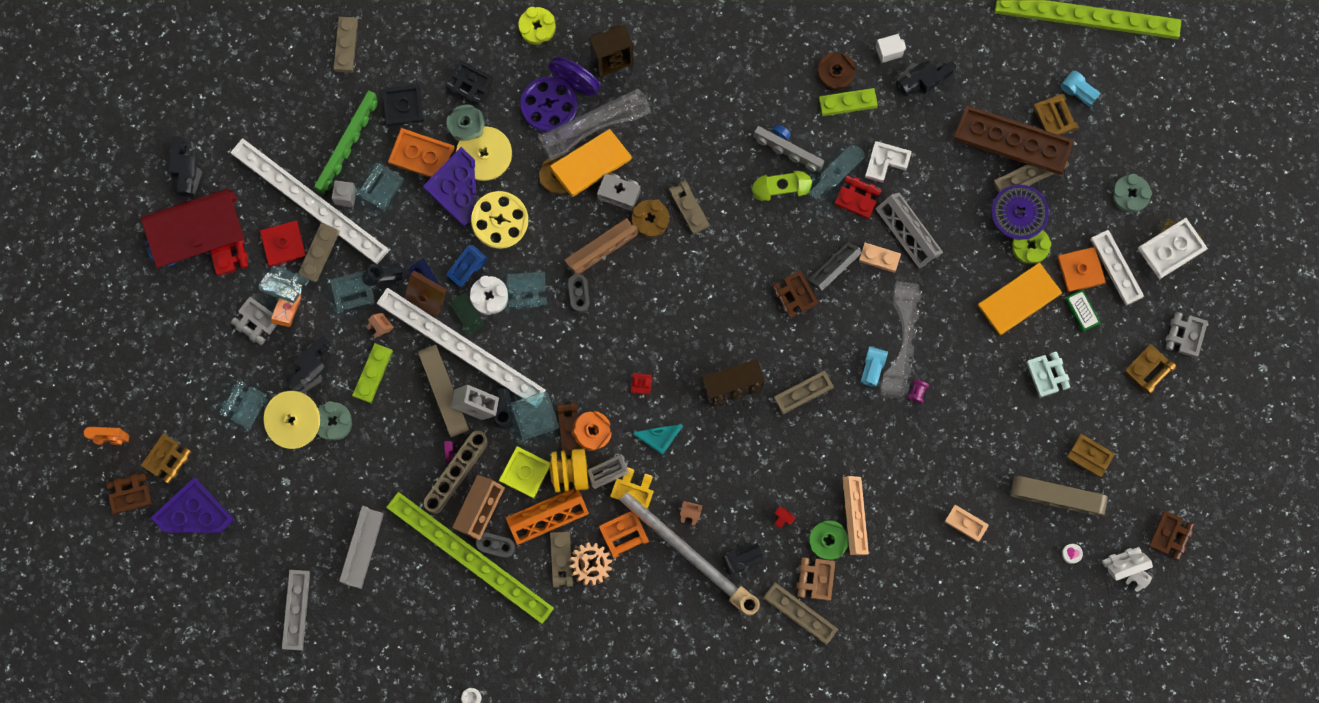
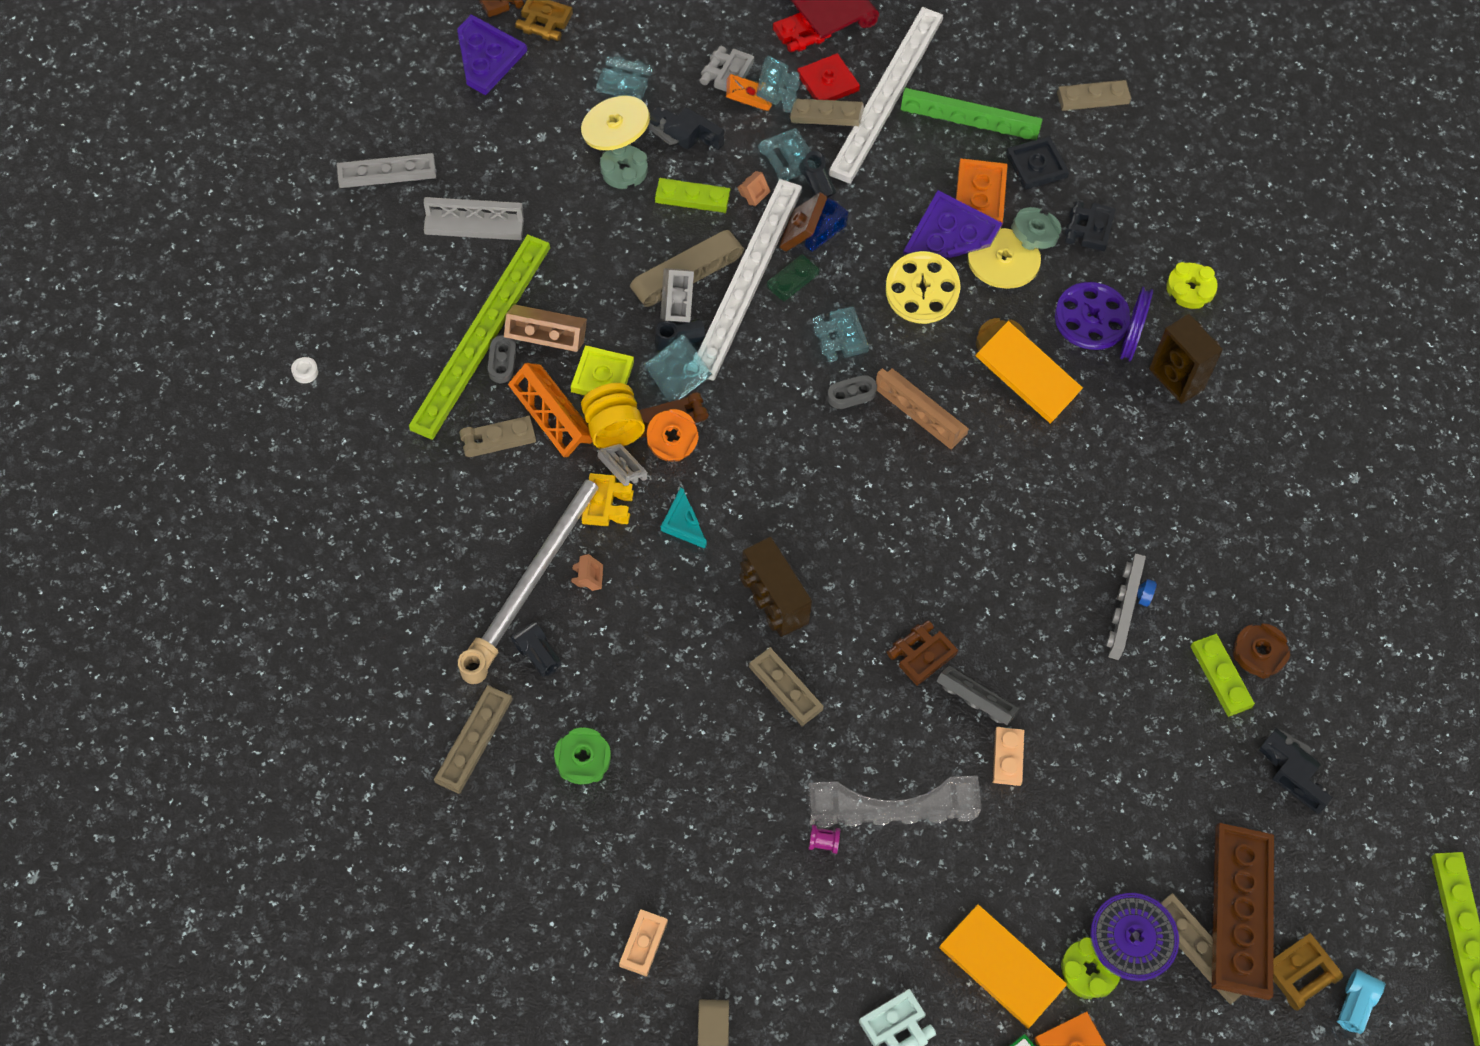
camera: 75 degrees right, 15 degrees down
(344, 193) = (906, 122): light grey brick -> none
(385, 188) = (927, 164): clear light blue plate -> none
(449, 451) = (611, 288): magenta tile -> none
(457, 462) = (598, 299): dark tan beam -> none
(466, 264) = (858, 262): blue plate -> none
(478, 296) = (822, 284): white plate -> none
(563, 138) = (1110, 392): clear arch -> none
(584, 560) = (504, 471): light nougat gear -> none
(620, 528) = (549, 493): orange plate -> none
(626, 198) = (1000, 412): light grey brick -> none
(641, 384) = (750, 486): red tile -> none
(656, 209) = (974, 470): pearl gold plate -> none
(689, 208) = (1005, 501): dark tan plate -> none
(767, 186) = (1083, 625): lime piece -> none
(784, 516) = (604, 690): red tile -> none
(822, 579) = (525, 756): medium nougat plate -> none
(844, 164) = (1128, 681): clear light blue piece -> none
(855, 202) = (1078, 711): red plate -> none
(855, 515) = (624, 784): light nougat plate -> none
(874, 362) = (854, 772): medium azure piece -> none
(884, 156) = (1158, 733): white plate -> none
(890, 48) = (1321, 714): white brick -> none
(914, 226) = (1066, 788): light grey fence -> none

